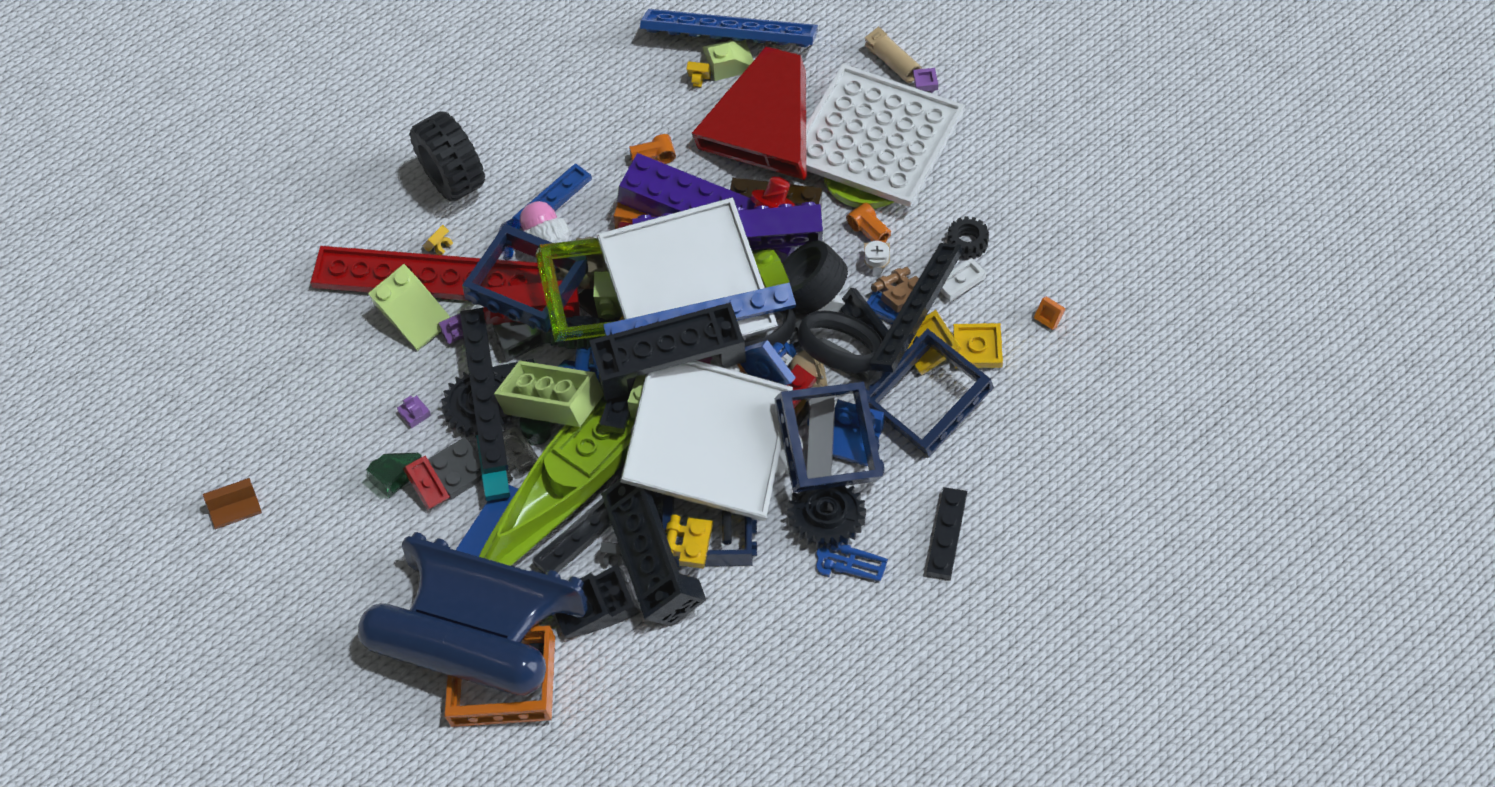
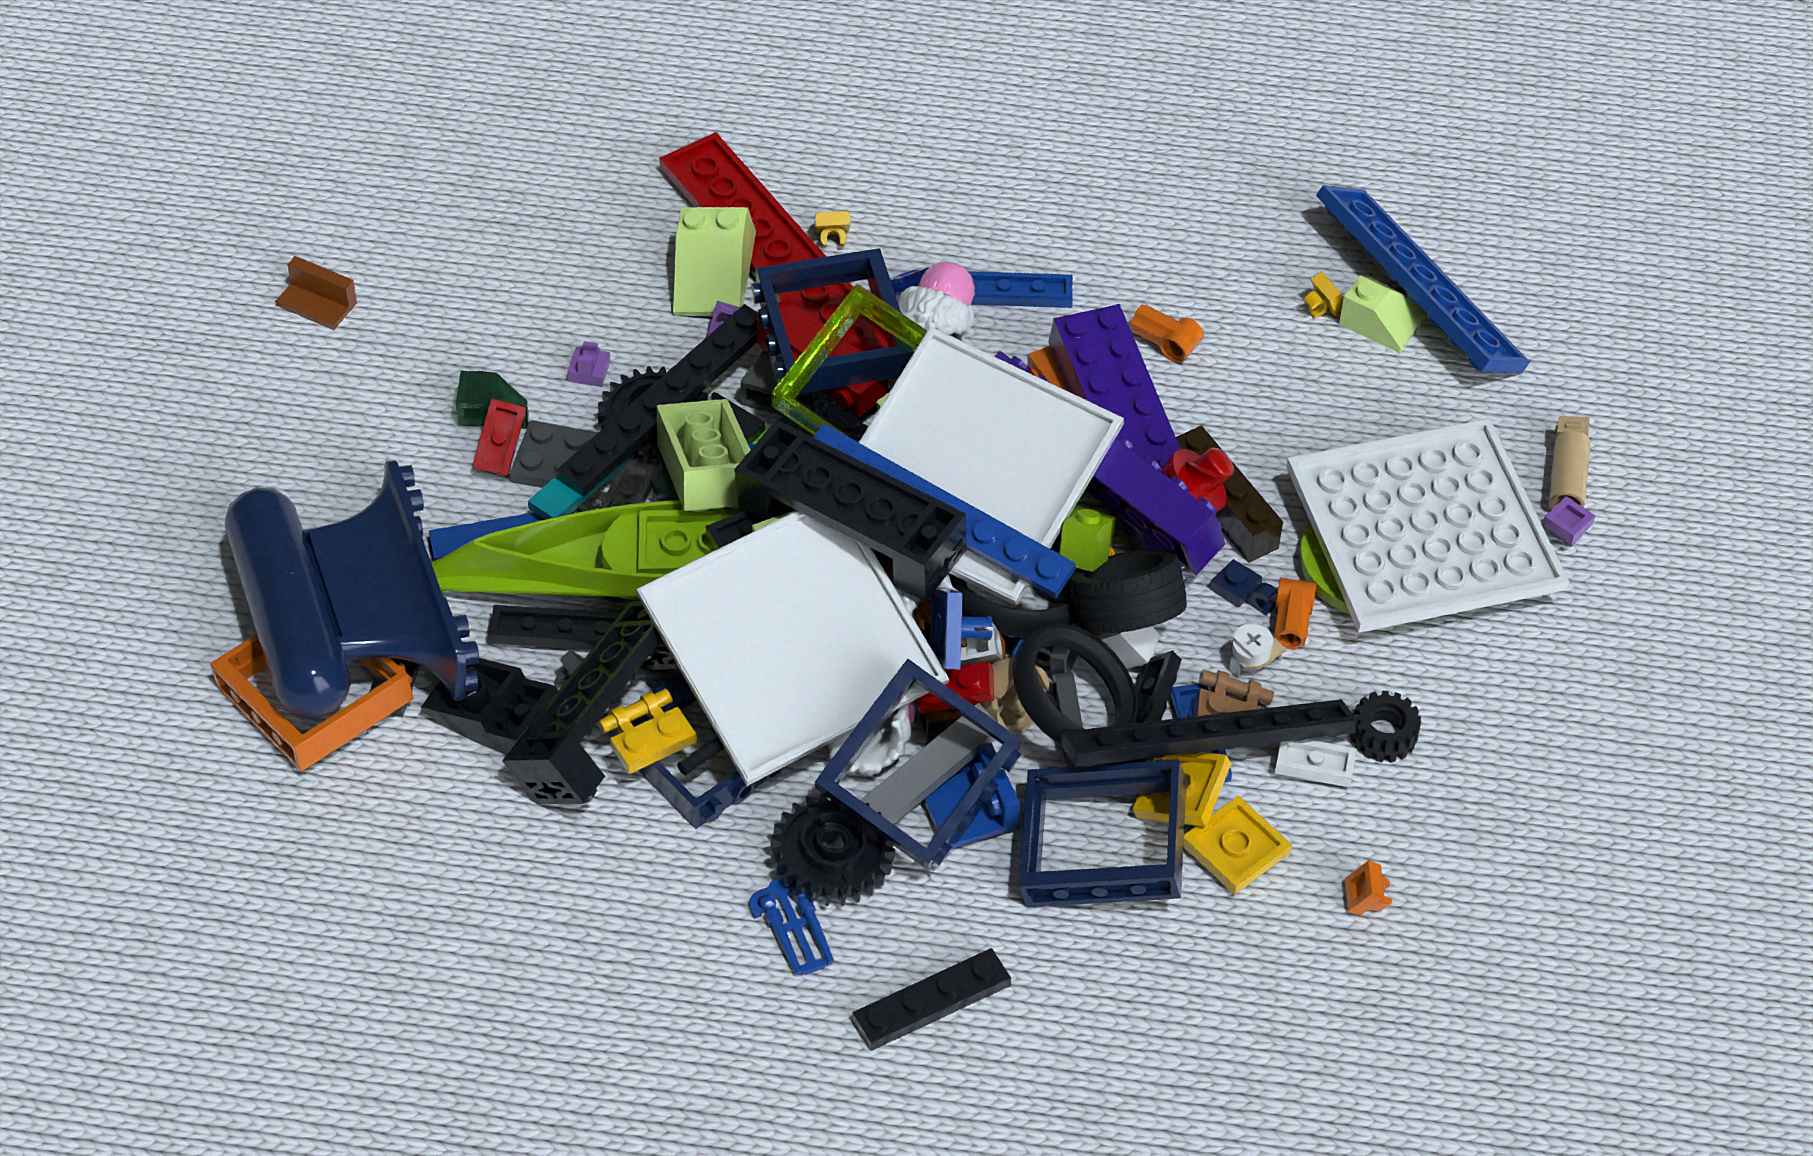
camera: 45 degrees right, 5 degrees down
(447, 156) = (932, 144): black tyre -> none
(762, 116) = (1328, 394): red slope -> none
(833, 234) = (1242, 584): none -> dark blue plate

